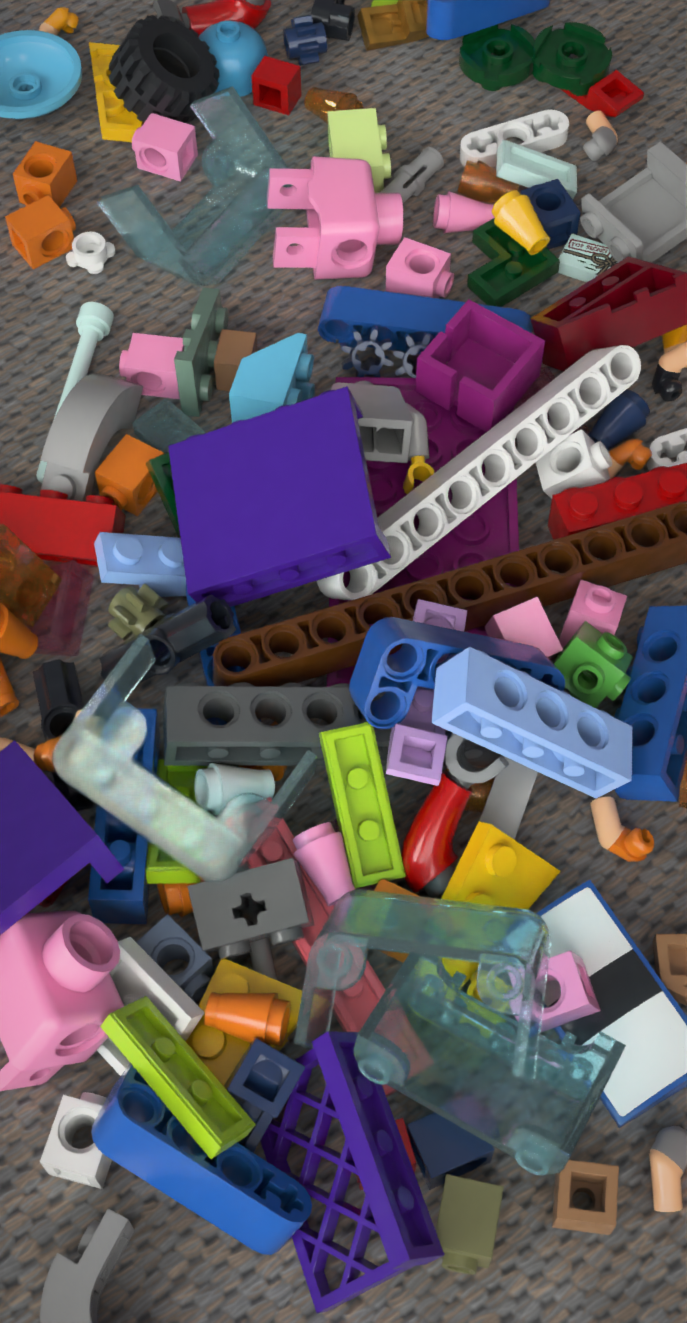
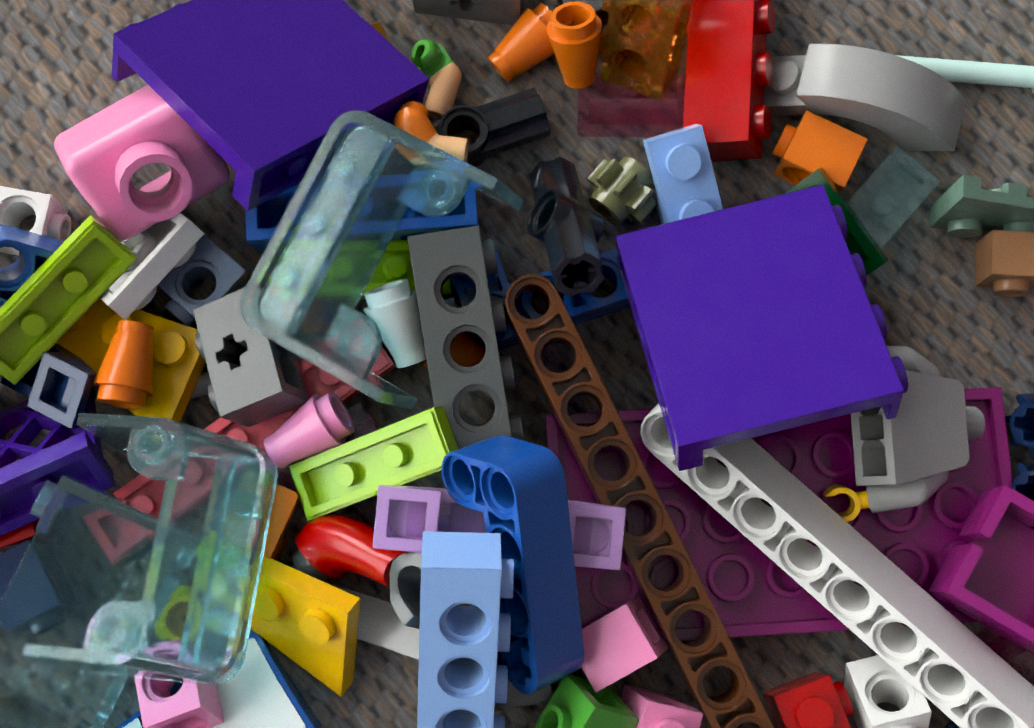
camera: 85 degrees right, 20 degrees up
(152, 364) = (993, 152): bright pink brick -> none
(272, 378) = (949, 307): medium azure slope -> none

